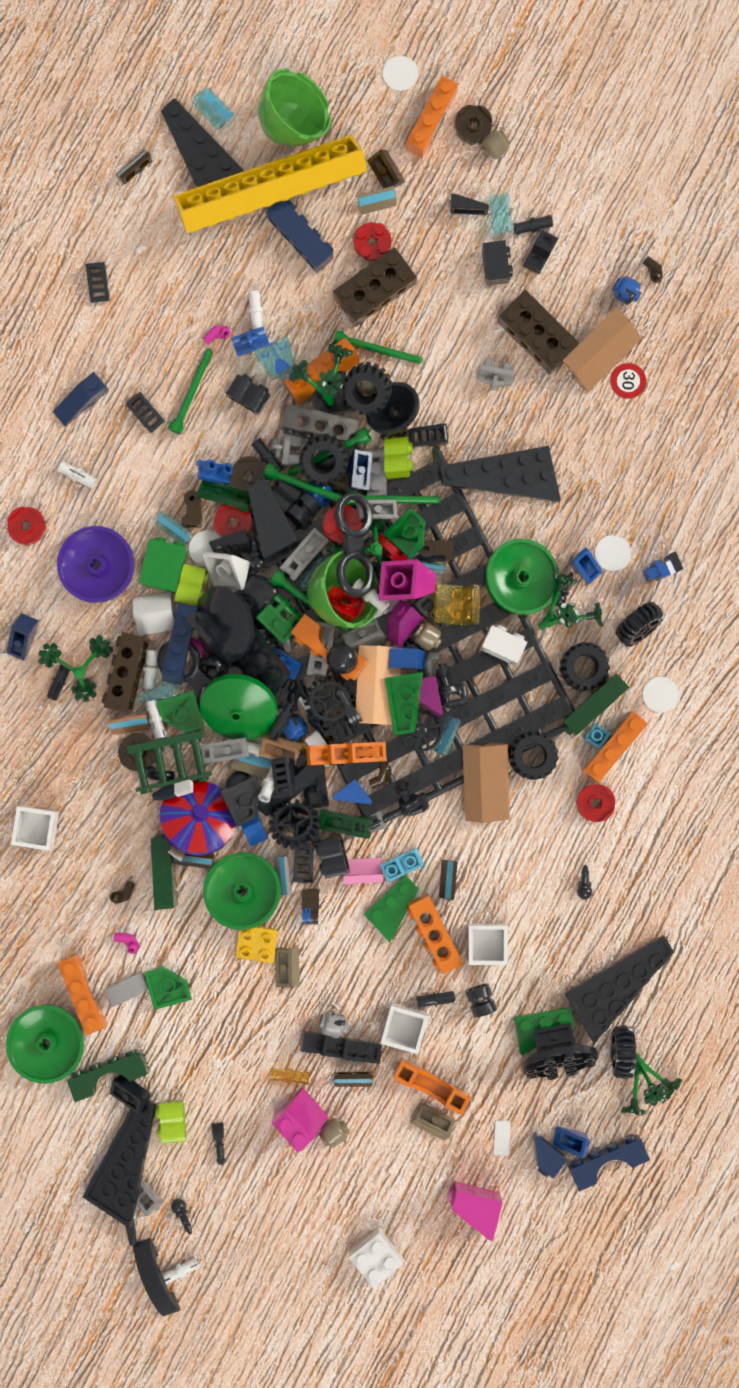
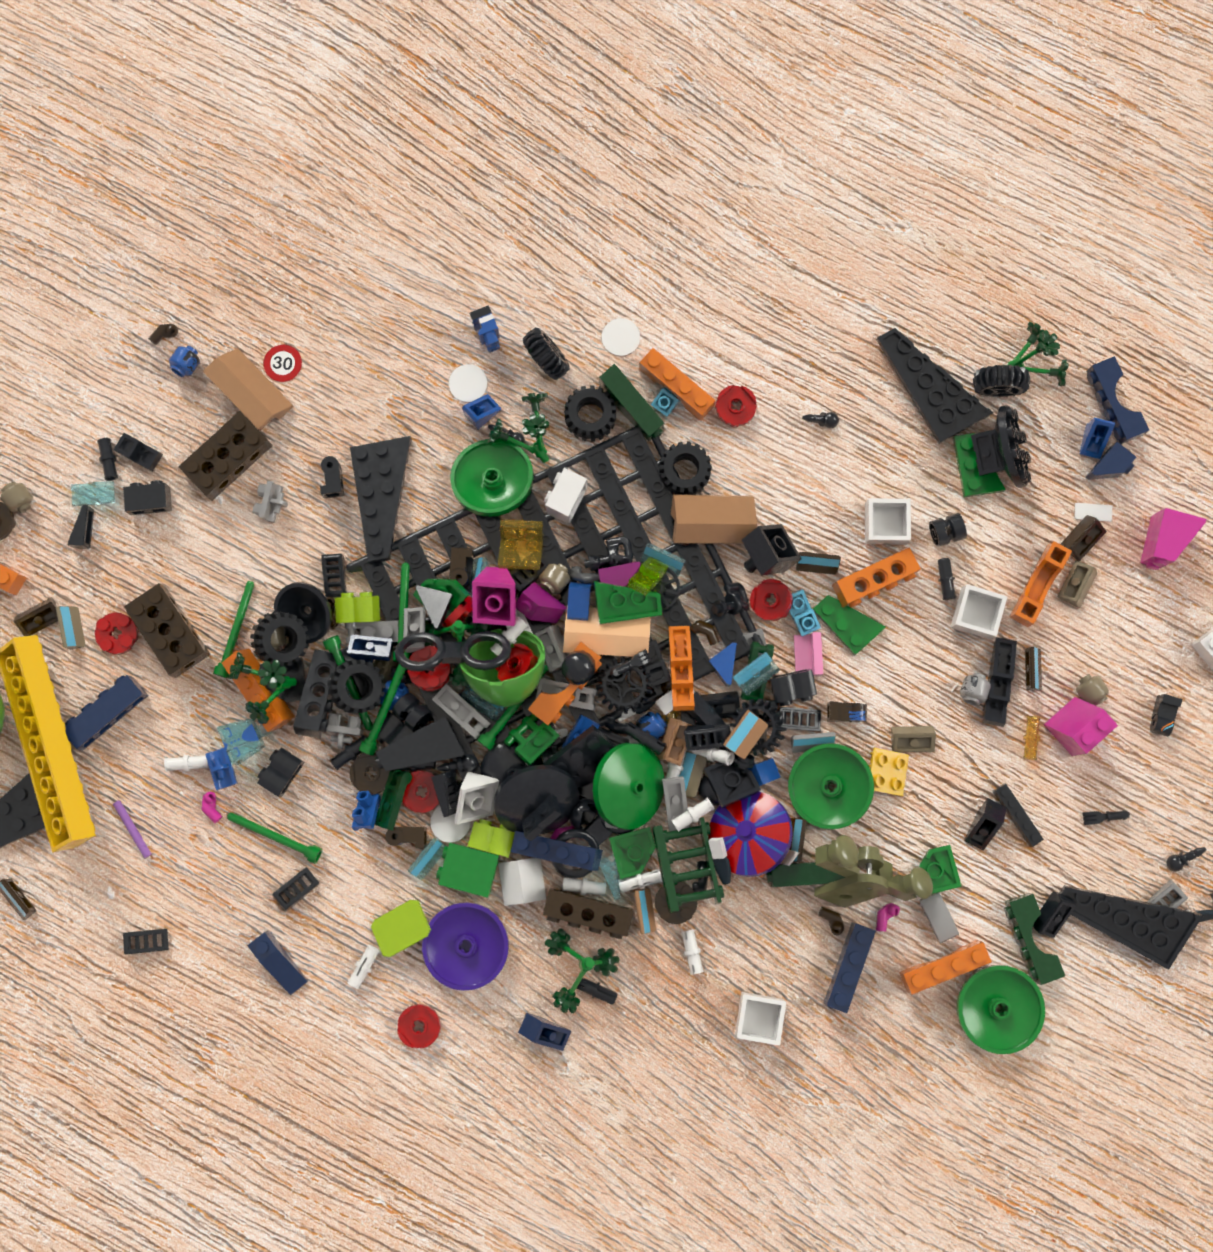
camera: 85 degrees left, 5 degrees down
(81, 908) = (849, 967): none -> dark blue brick
(93, 767) = (692, 952): none -> white pin
(111, 506) = (400, 928): none -> lime piece
(157, 934) = (844, 858): none -> olive piece
(172, 1121) = (1084, 868): lime brick -> none
(196, 265) = (132, 829): none -> medium lavender piece
(210, 1033) = (986, 824): none -> black slope
(214, 765) = (692, 814): none -> white pin
(219, 1062) = (1018, 815): none -> black piece
(263, 811) = (745, 763): none -> black plate
(285, 812) = (745, 734): none -> slope
(312, 1199) = (1164, 714): none -> black leg
(343, 822) = (756, 673): none -> clear light blue slope
(399, 528) = (436, 604): none -> tile
(415, 846) = (779, 608): none -> red plate
(429, 721) = (648, 576): none -> clear neon green slope
(457, 834) = (770, 550): none -> black brick
(477, 1128) = (1084, 537): none -> dark brown slope
(519, 431) = (333, 478): none -> black leg

